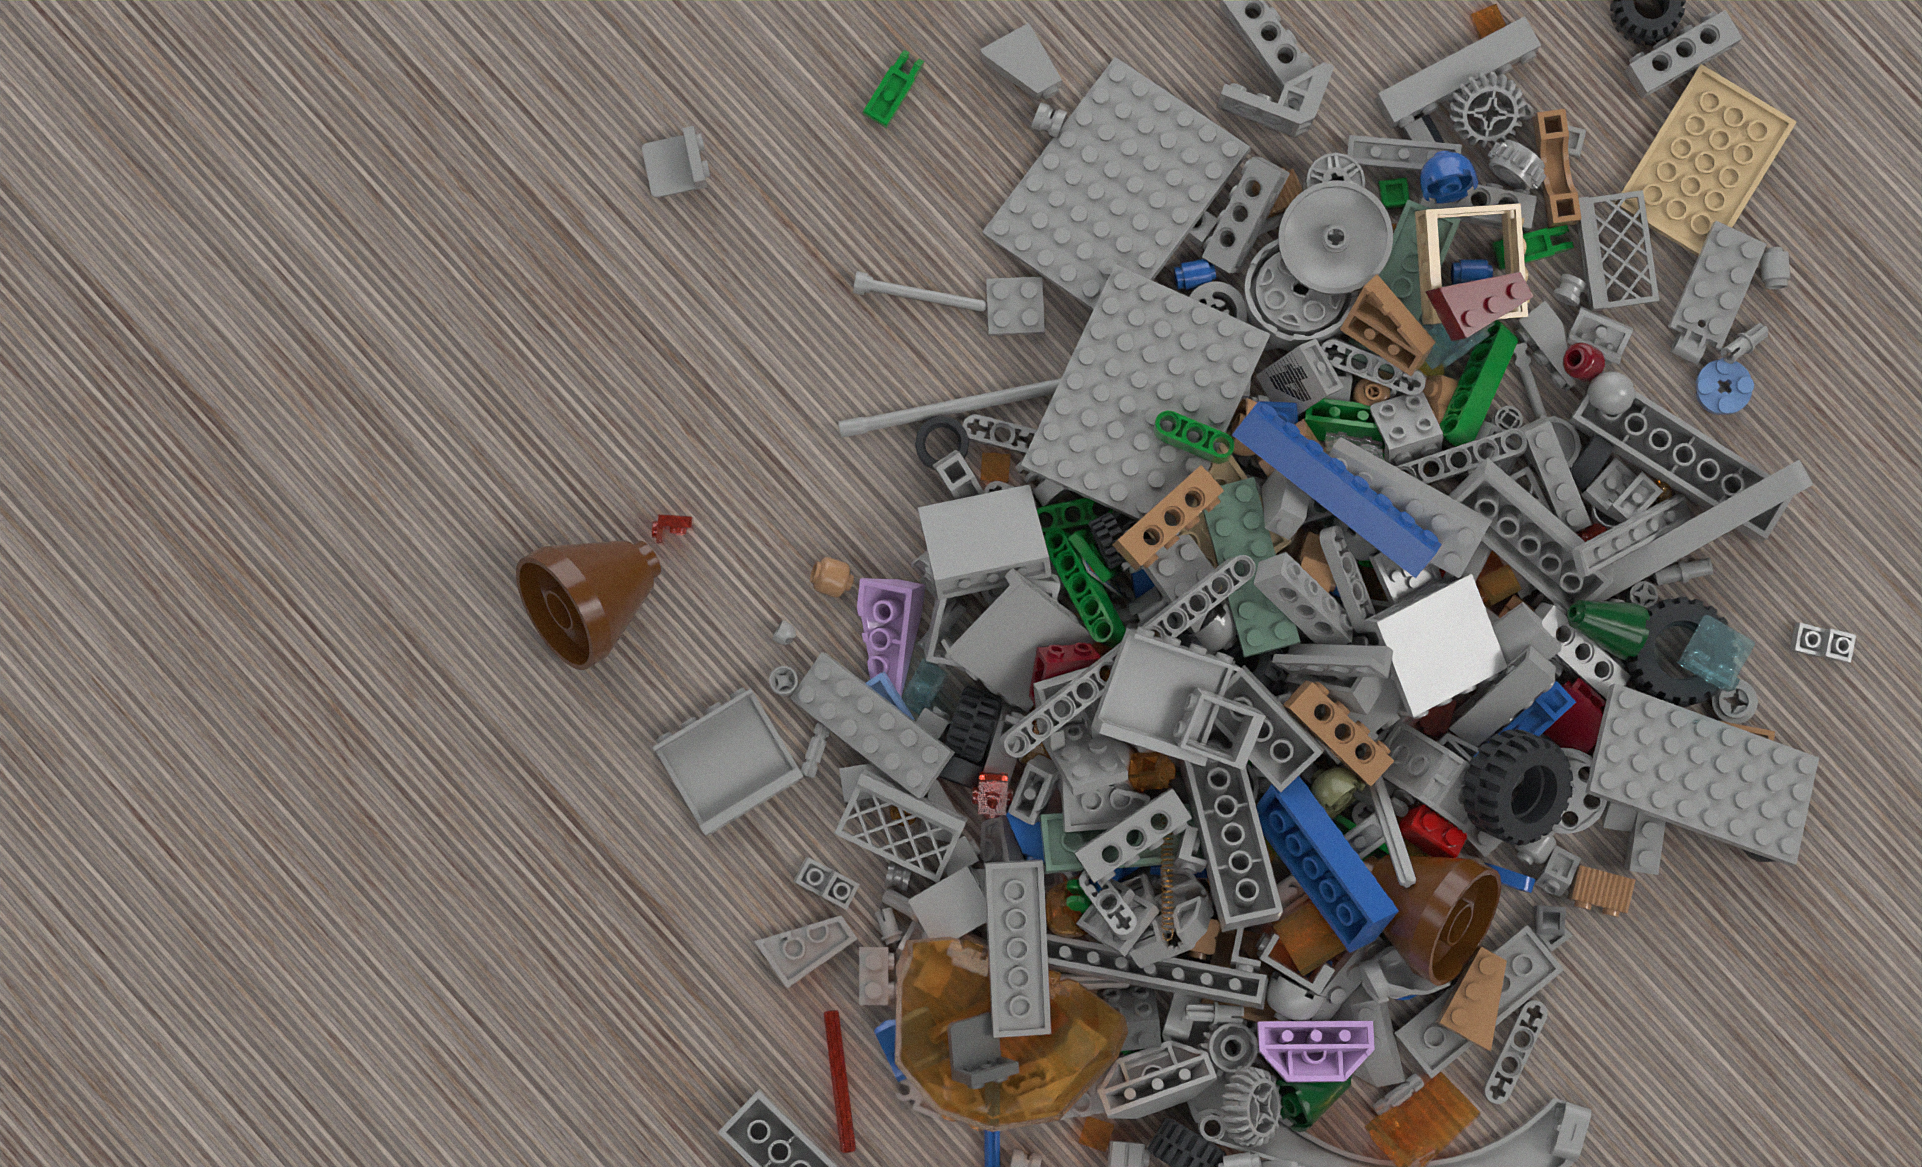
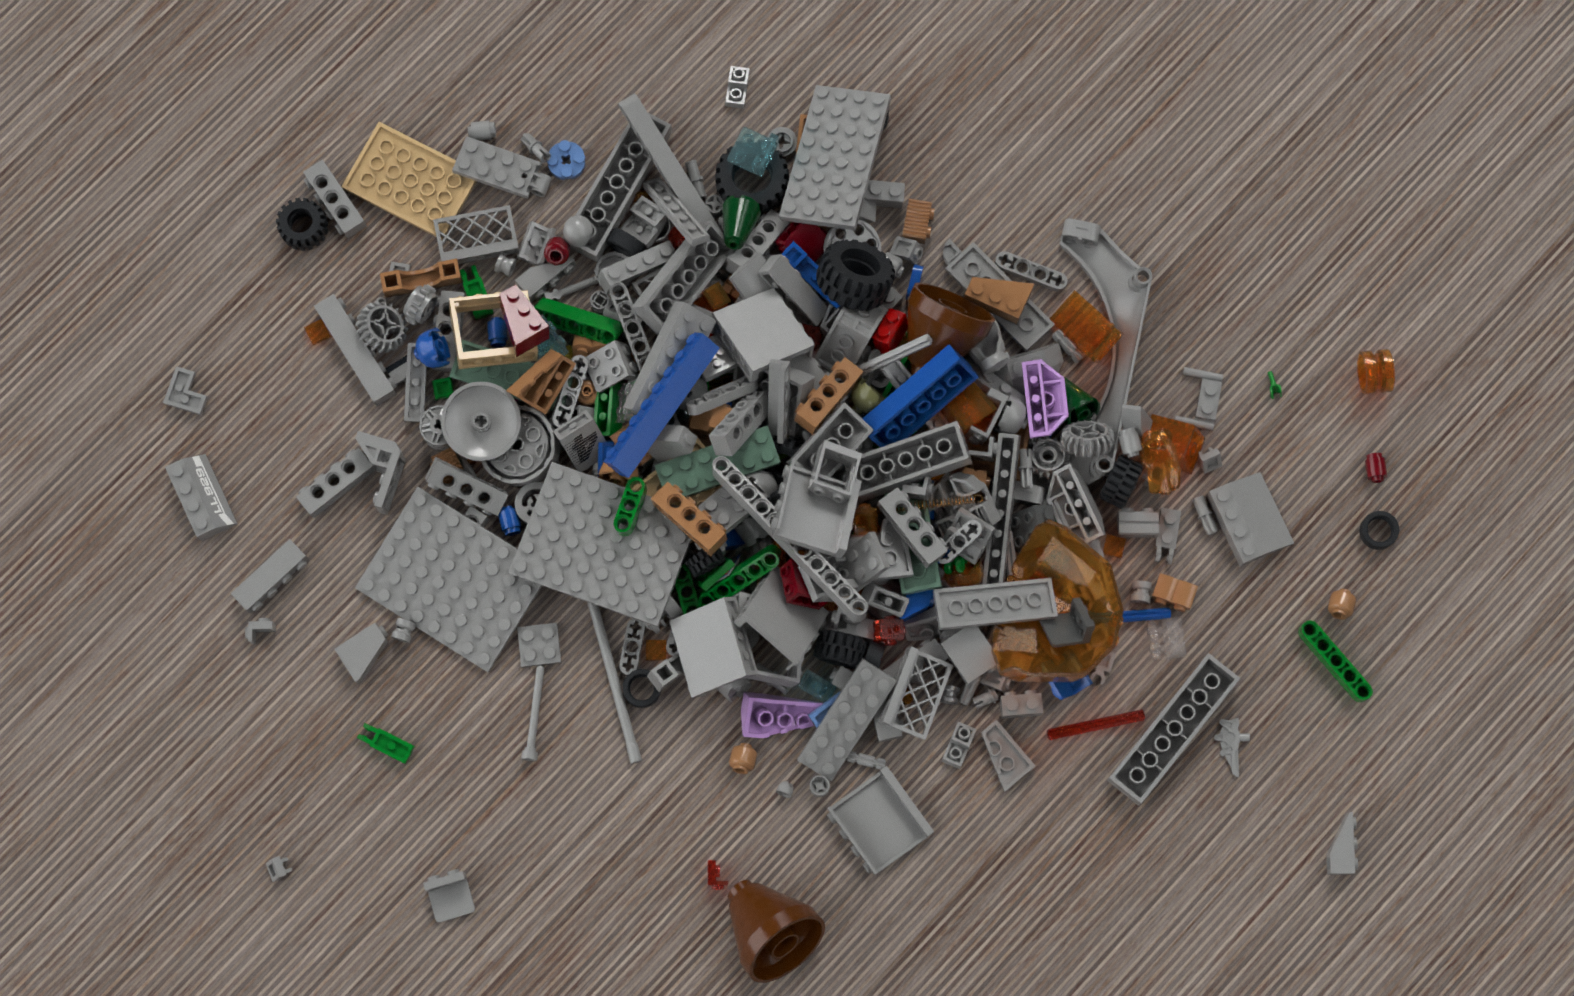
camera: 90 degrees left, 5 degrees down
(1550, 920) = (940, 253): flat silver slope -> none

